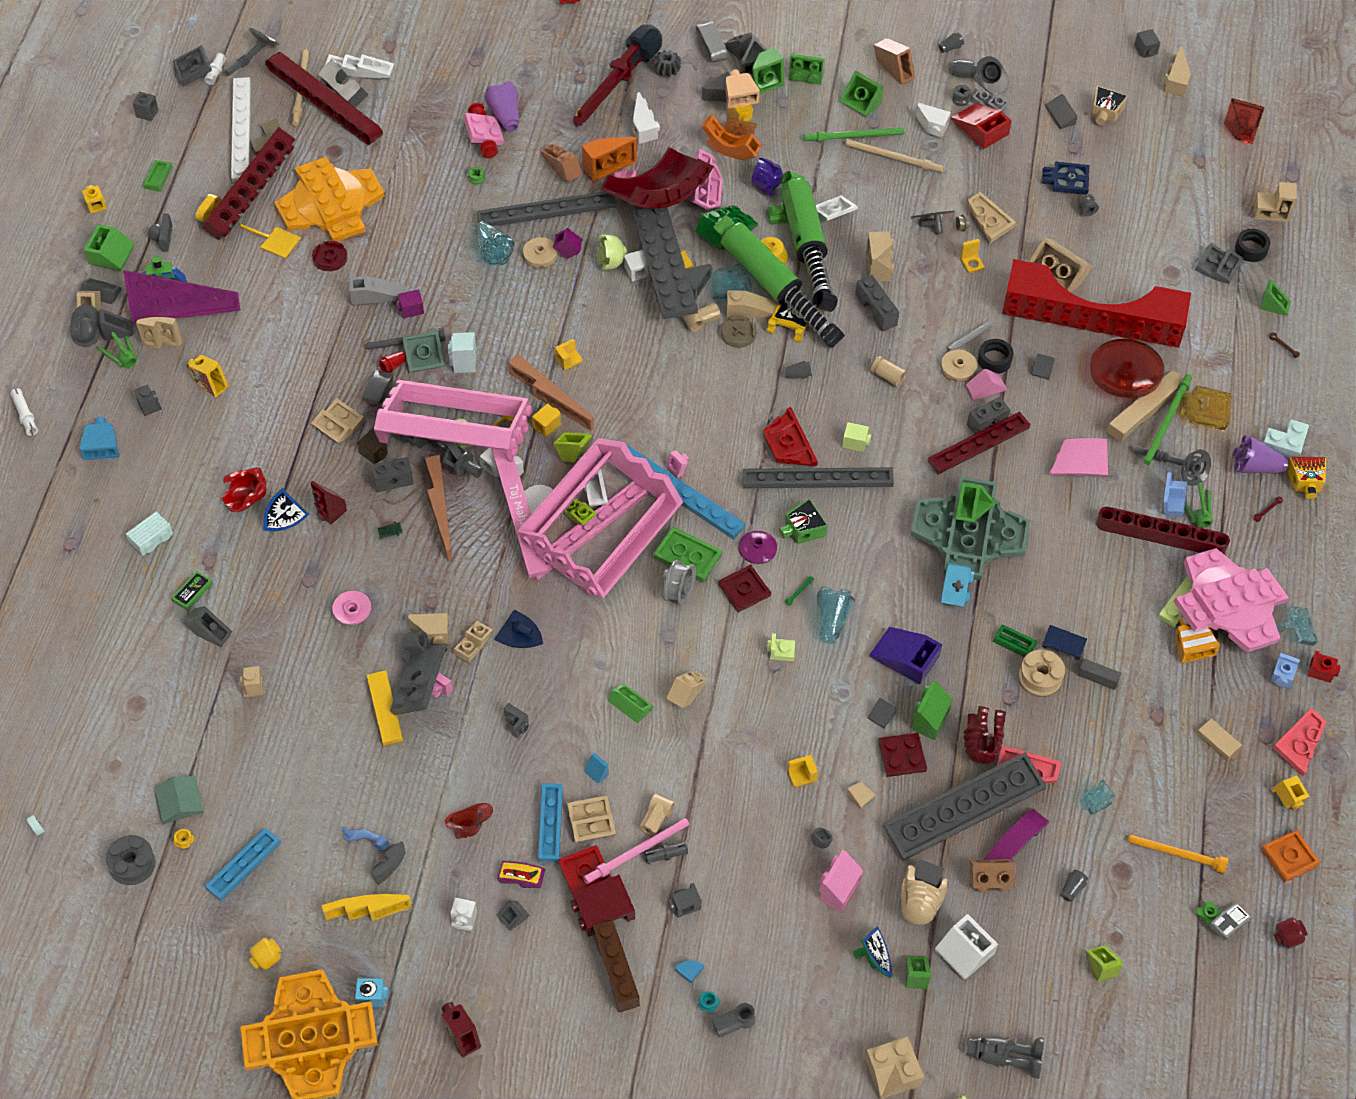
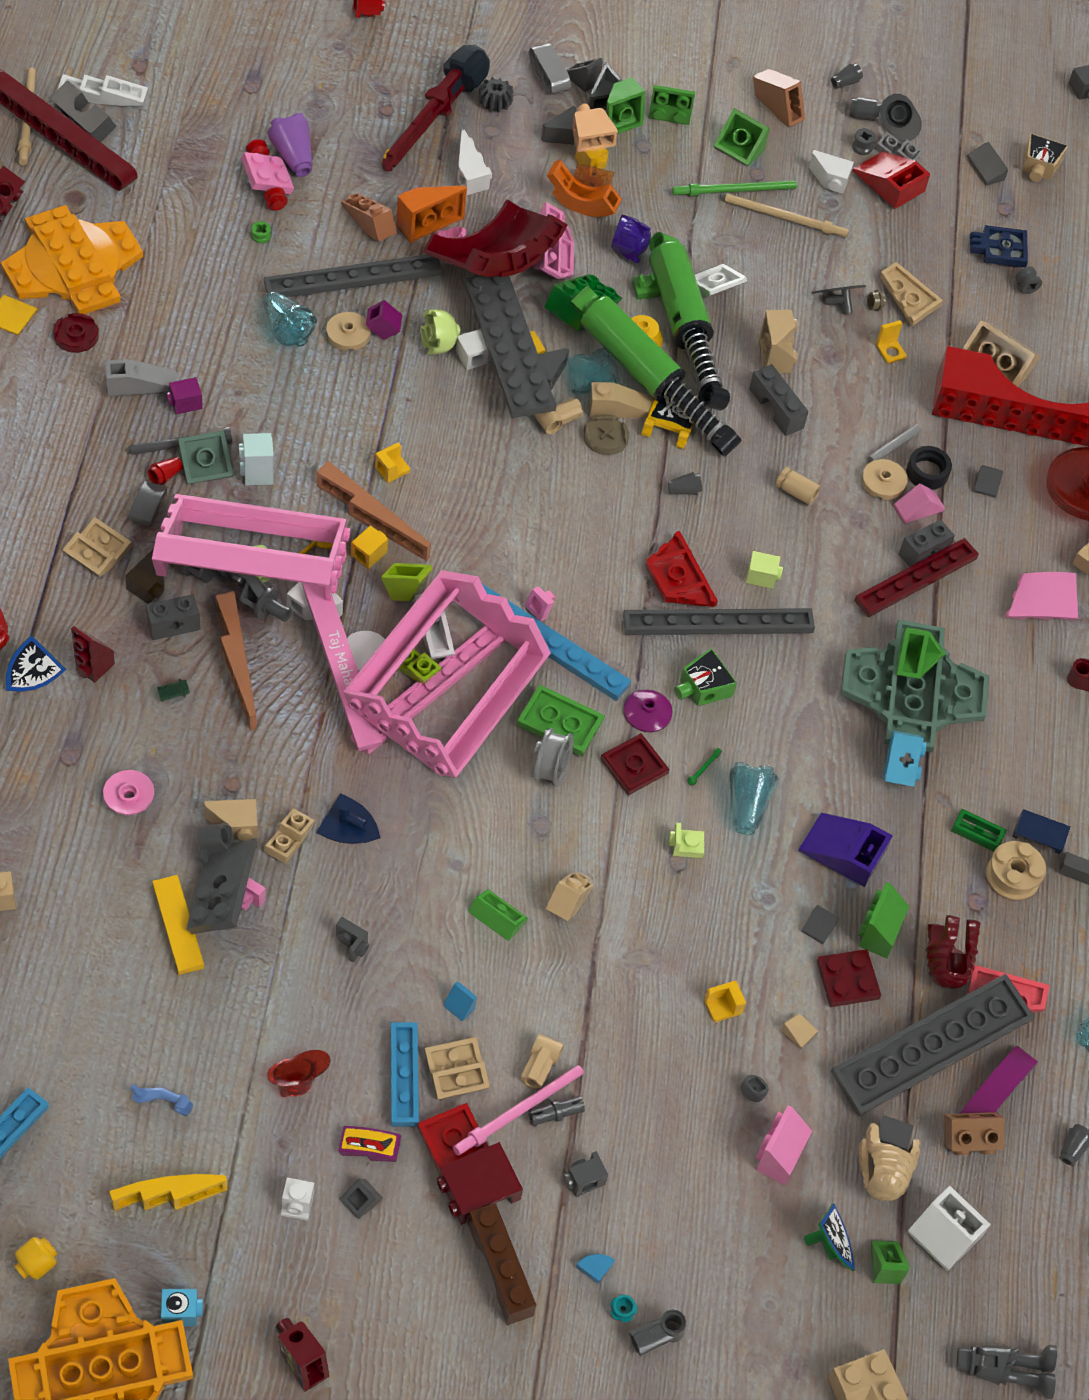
camera: 10 degrees left, 0 degrees up
(393, 856) = (200, 1124): dark grey slope -> none

